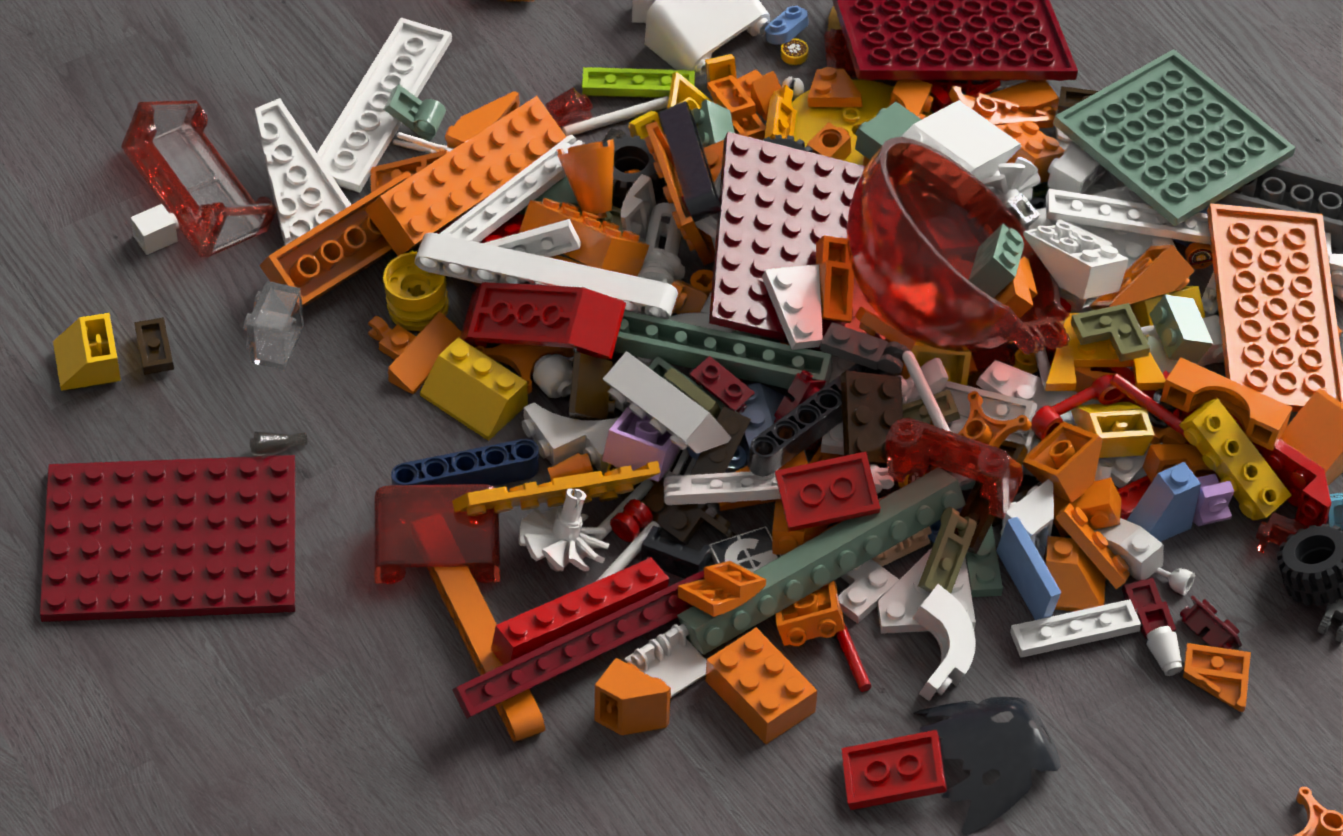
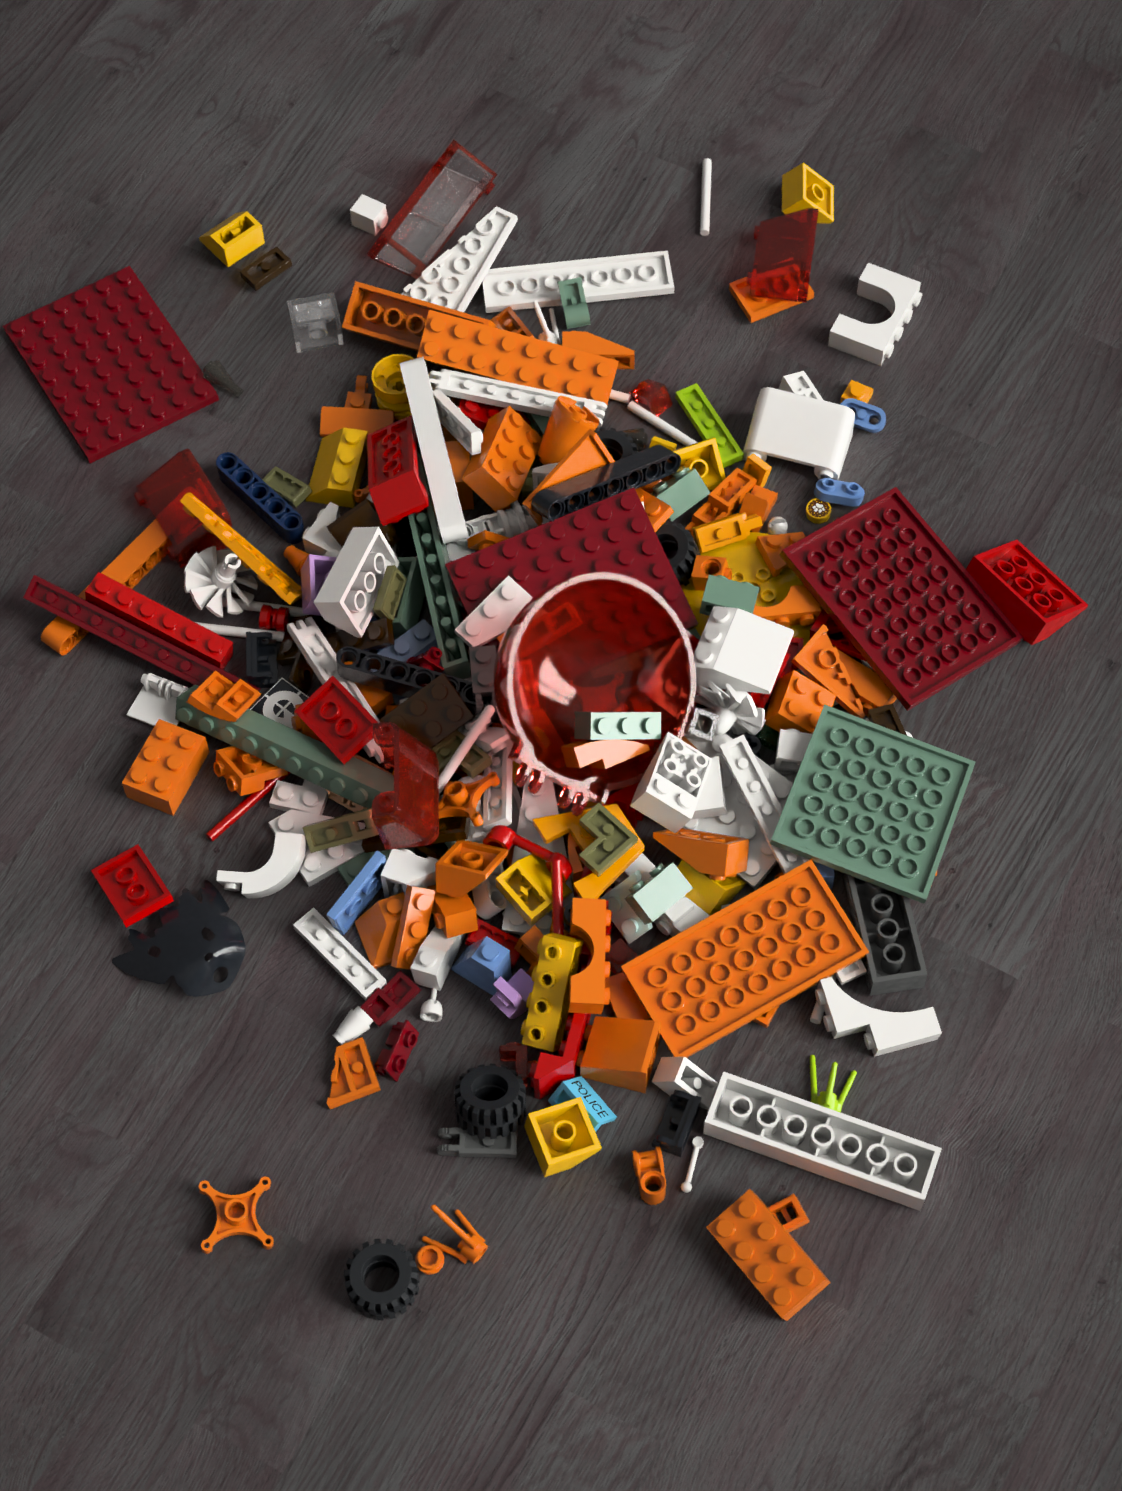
camera: 65 degrees right, 10 degrees up
(468, 438) = (287, 486): none -> olive plate
(631, 700) = (102, 687): orange slope -> none
(722, 384) = (404, 607): dark red hinge -> none

